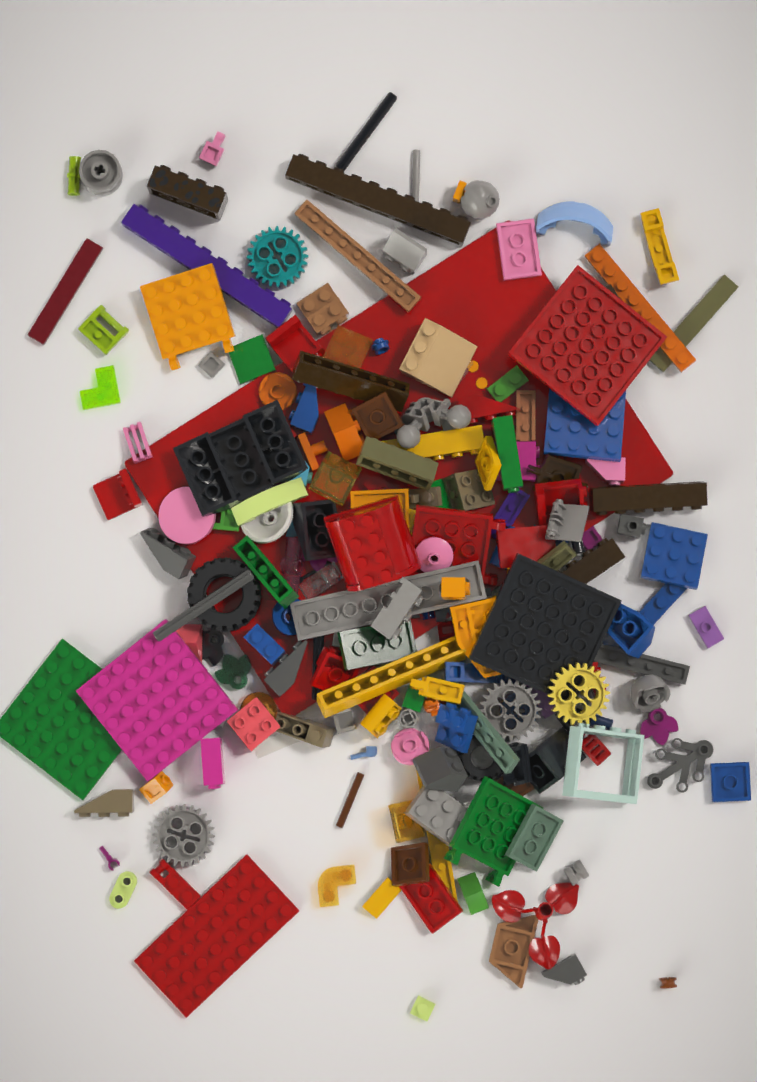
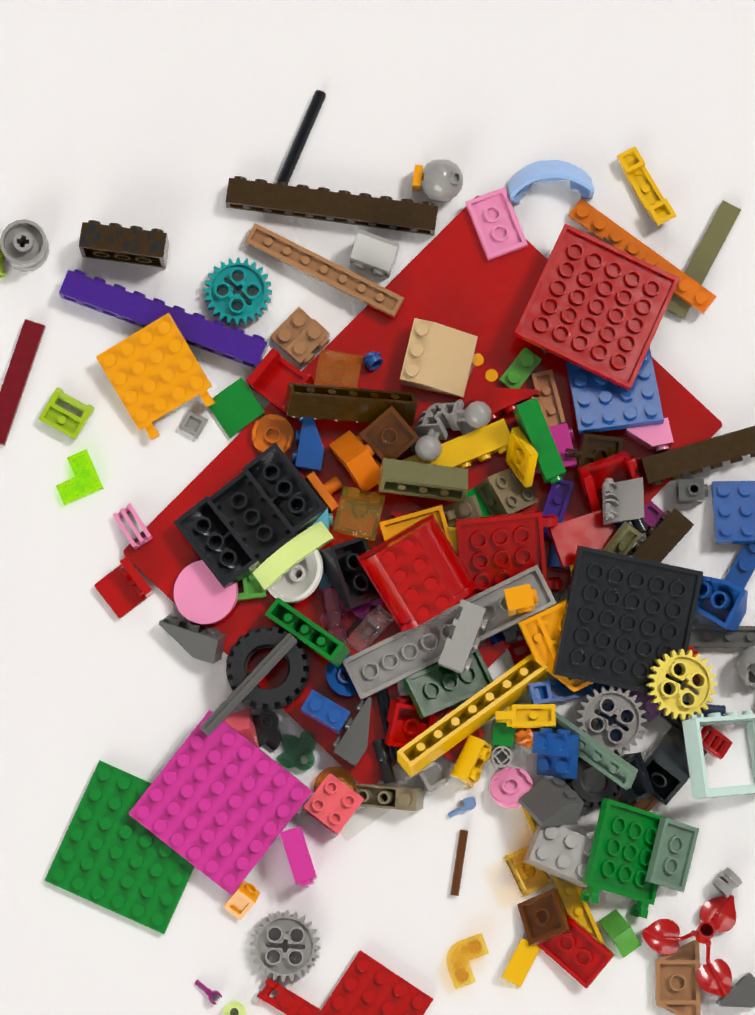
camera: 20 degrees left, 5 degrees down
(114, 801) = (198, 927): dark tan slope -> none
(212, 151) = (140, 196): bright pink plate -> none
(306, 701) = (384, 763): none -> black piece
(416, 174) = (365, 169): light grey bar -> none
(437, 547) = (484, 561): bright pink dish -> none

